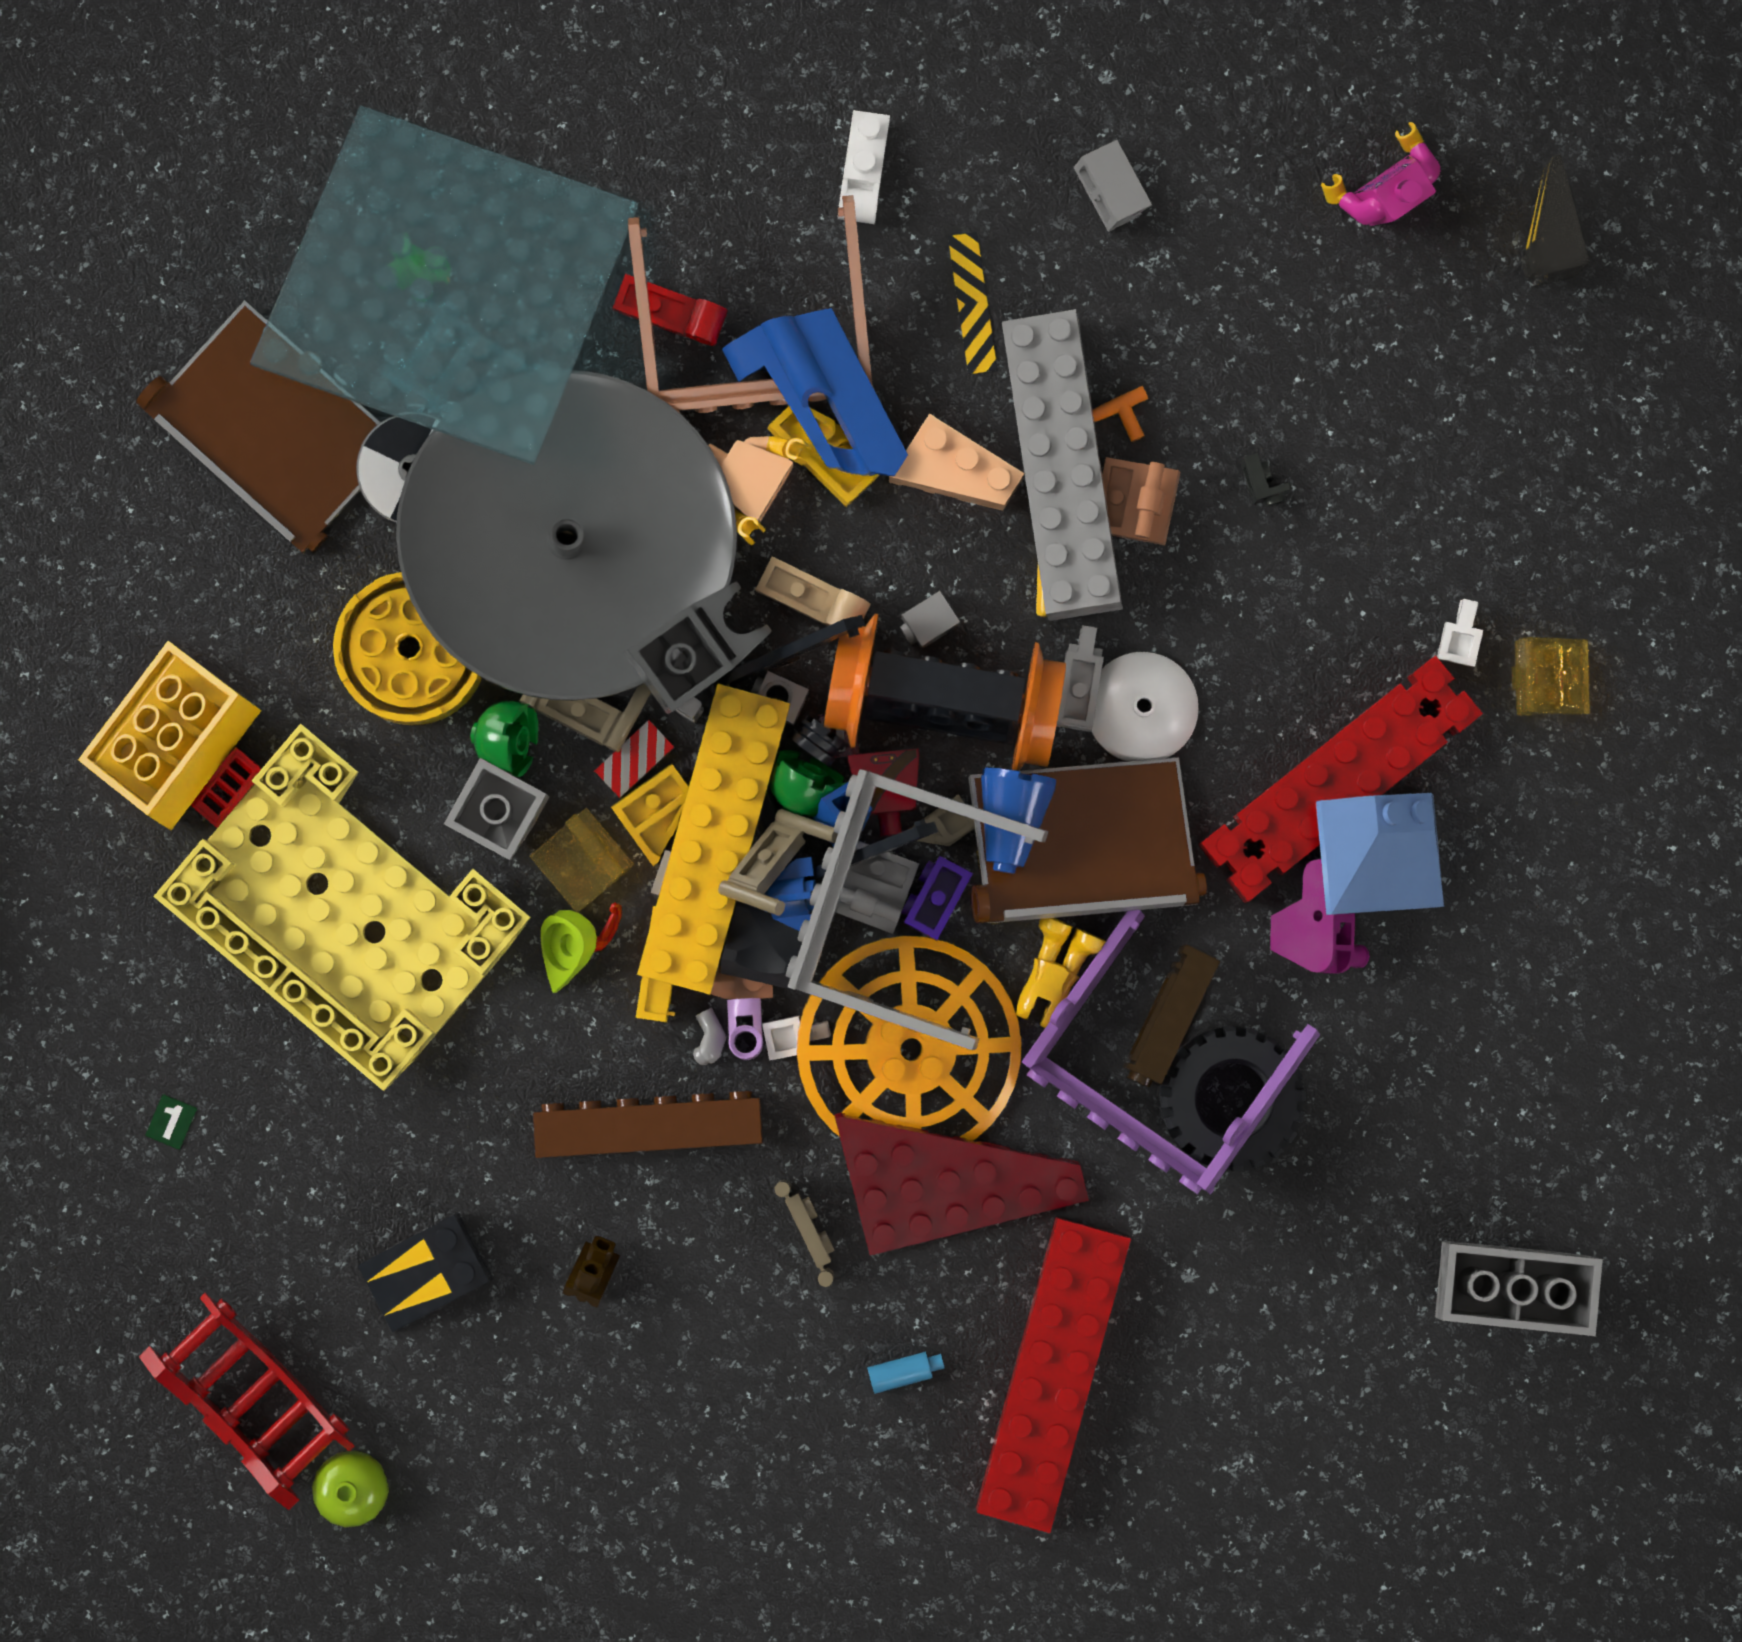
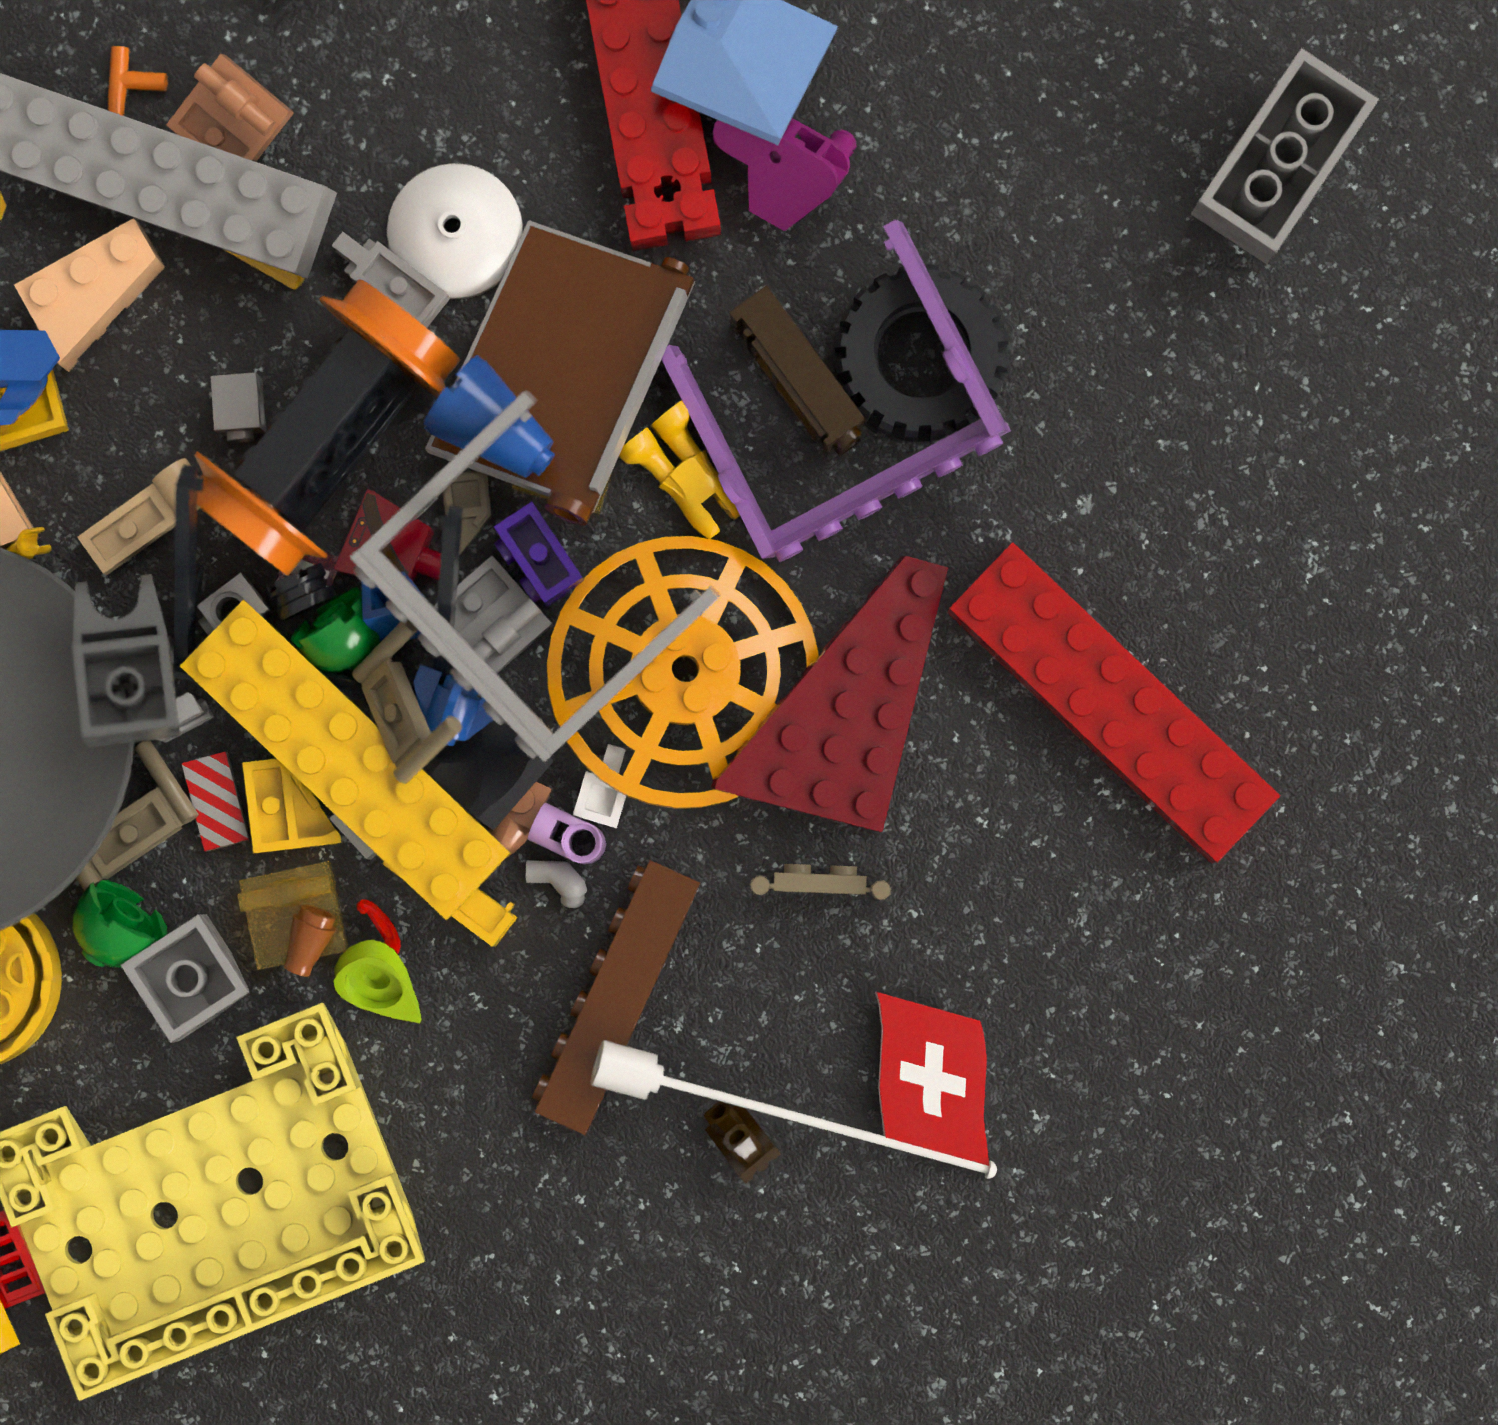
camera: 55 degrees left, 0 degrees up
(425, 1272) = (645, 1320): black slope -> none
(572, 881) = (309, 936): none -> dark orange cone
(702, 1386) = (926, 1084): none -> flag
(904, 1371) = (1025, 861): dark azure cylinder -> none

